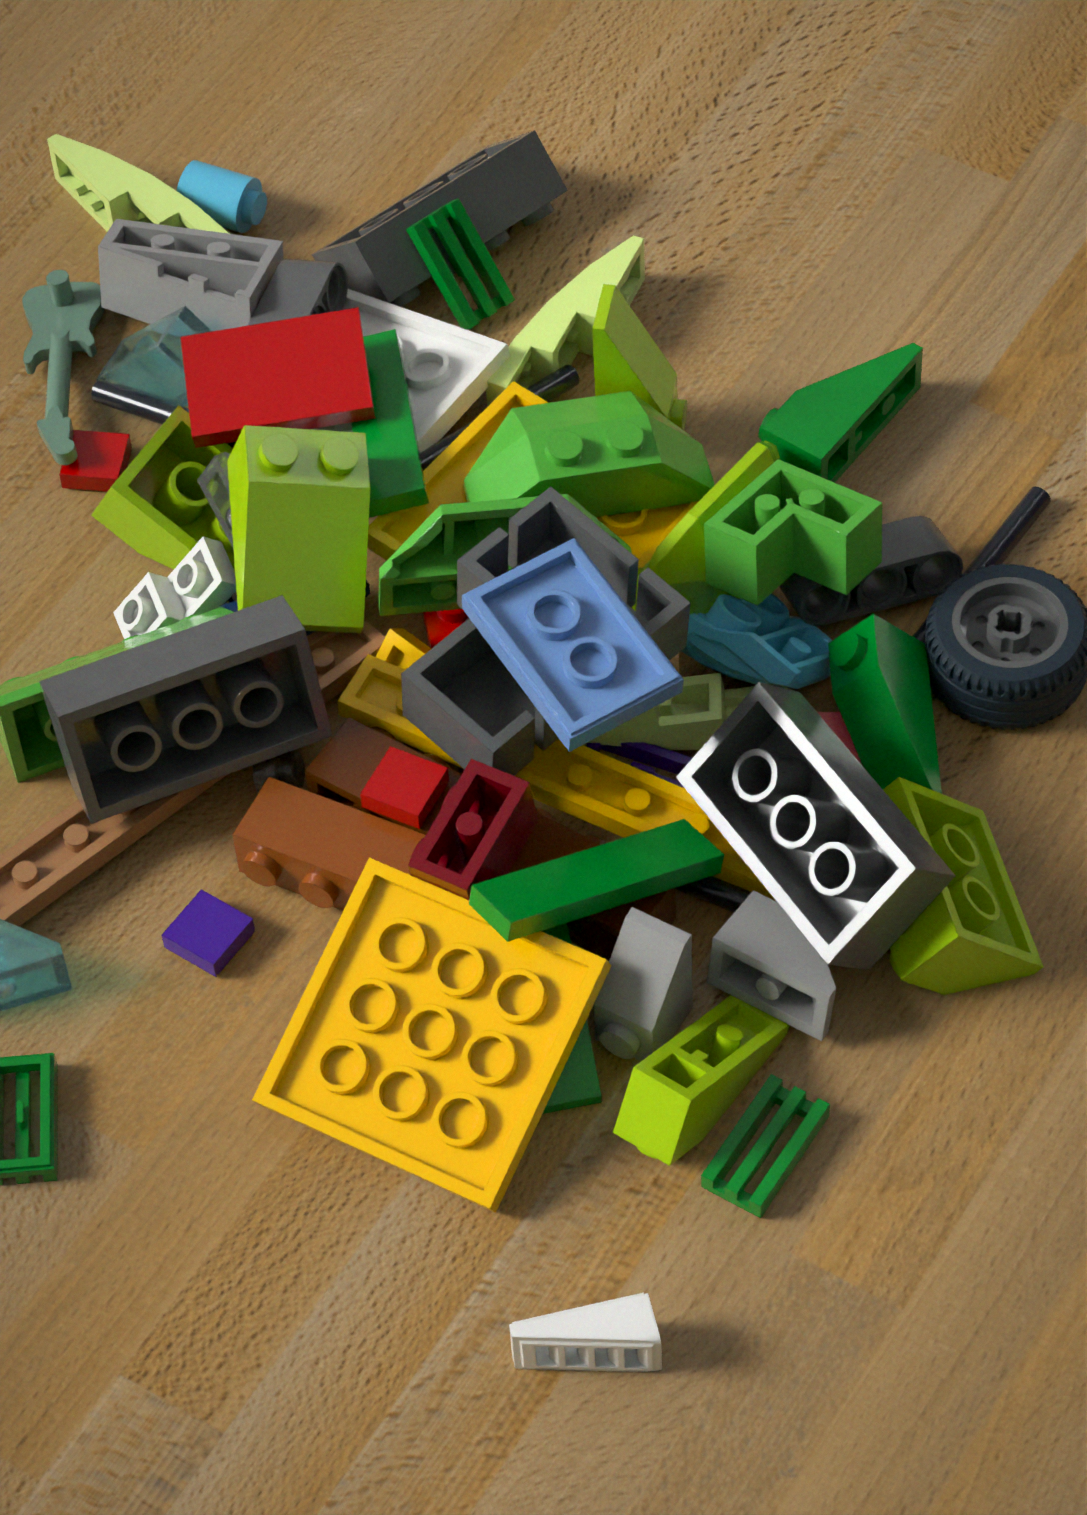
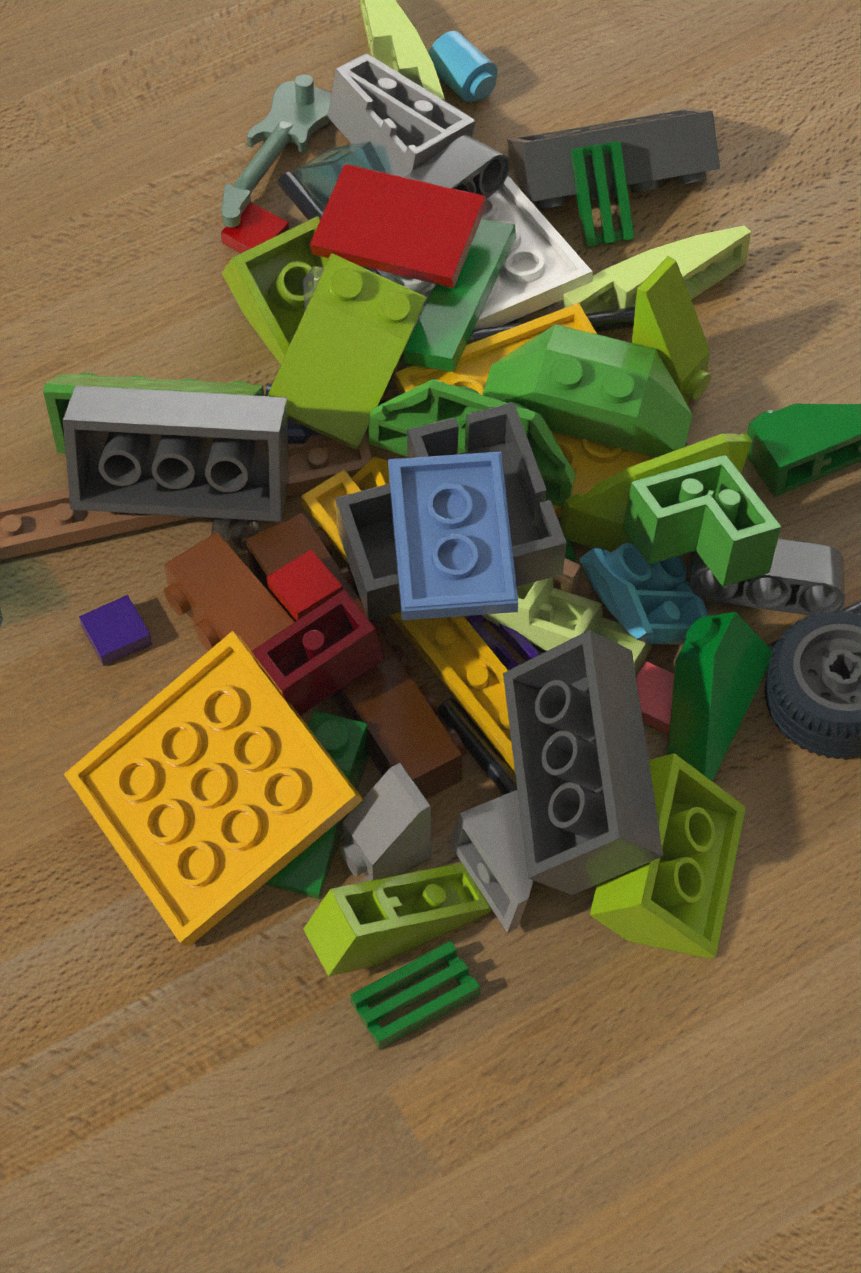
camera: 25 degrees right, 5 degrees up
(194, 587) = (250, 362): white slope -> none
(592, 1337) = (199, 1084): white slope -> none
(595, 879) = (392, 726): green tile -> none

